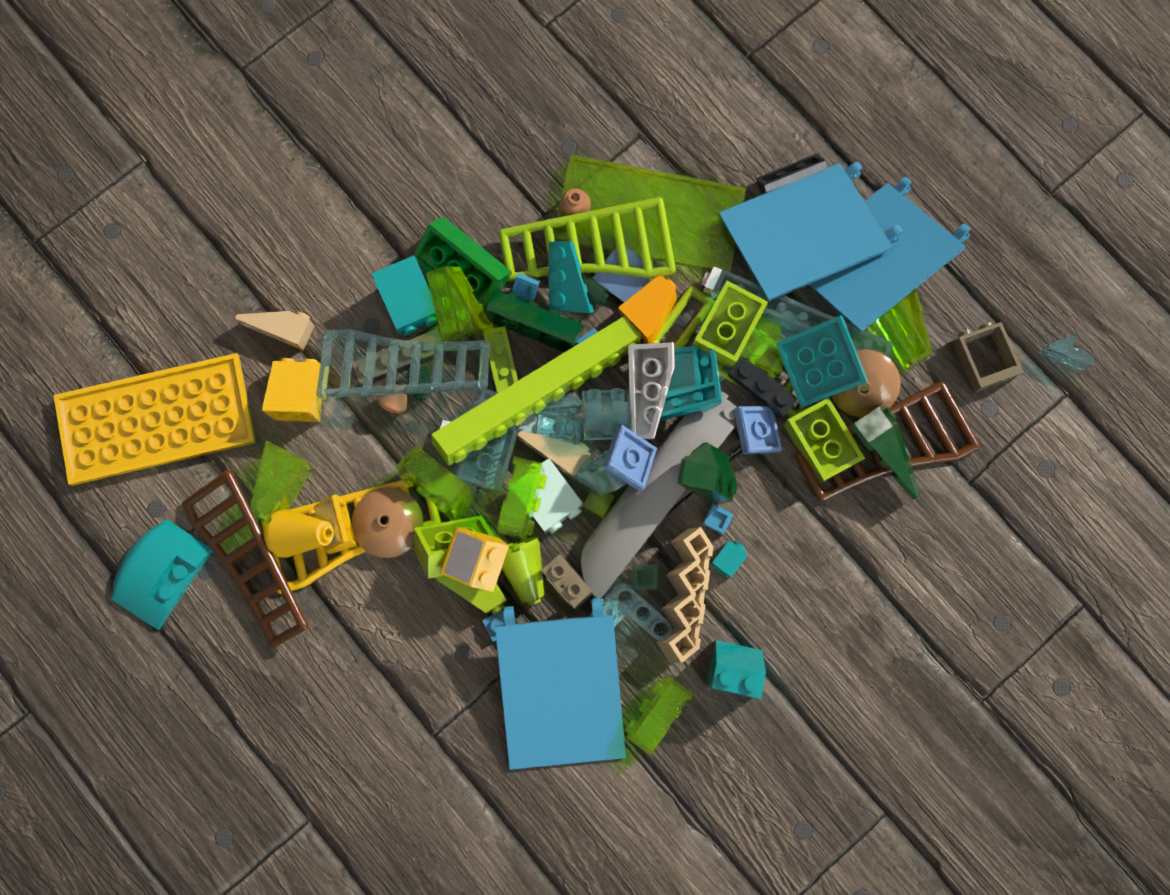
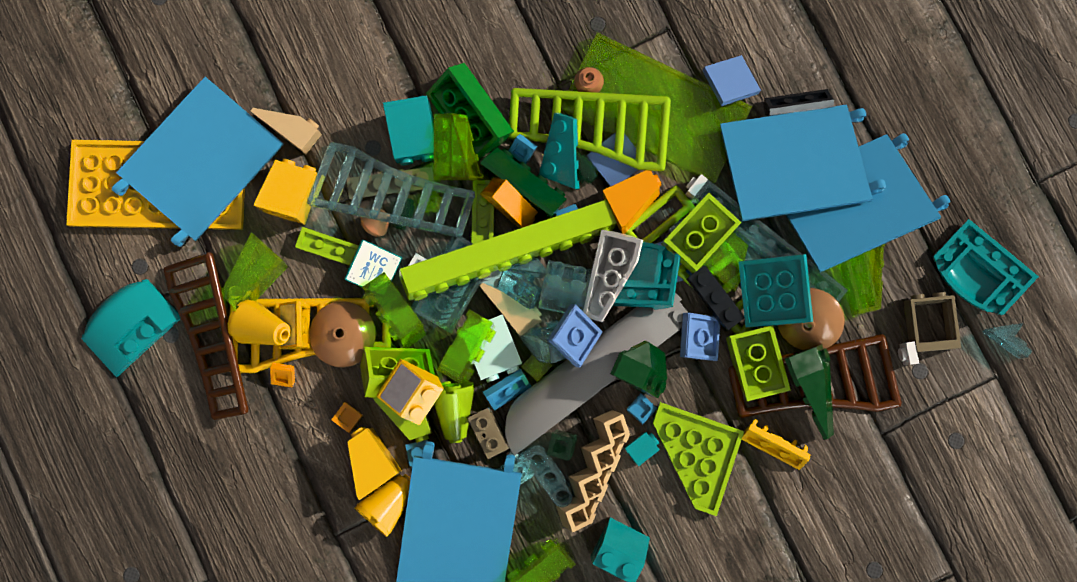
camera: 15 degrees right, 5 degrees up
(192, 382) = (198, 160): none -> dark azure flag
(334, 581) = (282, 375): none -> light orange plate
(352, 437) = (326, 246): none -> lime plate
(397, 440) = (371, 262): none -> white tile
(414, 607) = (347, 417): none -> light orange plate
(450, 368) = (435, 205): none -> clear neon green plant
(451, 647) = (370, 462): none -> yellow slope
(477, 687) = (386, 504): none -> yellow cone
(526, 342) = (509, 202): none -> light orange slope
(573, 535) = (507, 389): none -> dark azure plate
(718, 168) = (731, 80): none -> medium blue tile
(790, 549) = (700, 453): none -> lime plate
(865, 521) = (776, 446): none -> yellow plate
(972, 393) = (908, 353): none -> white plate
(1022, 291) = (982, 270): none -> teal slope

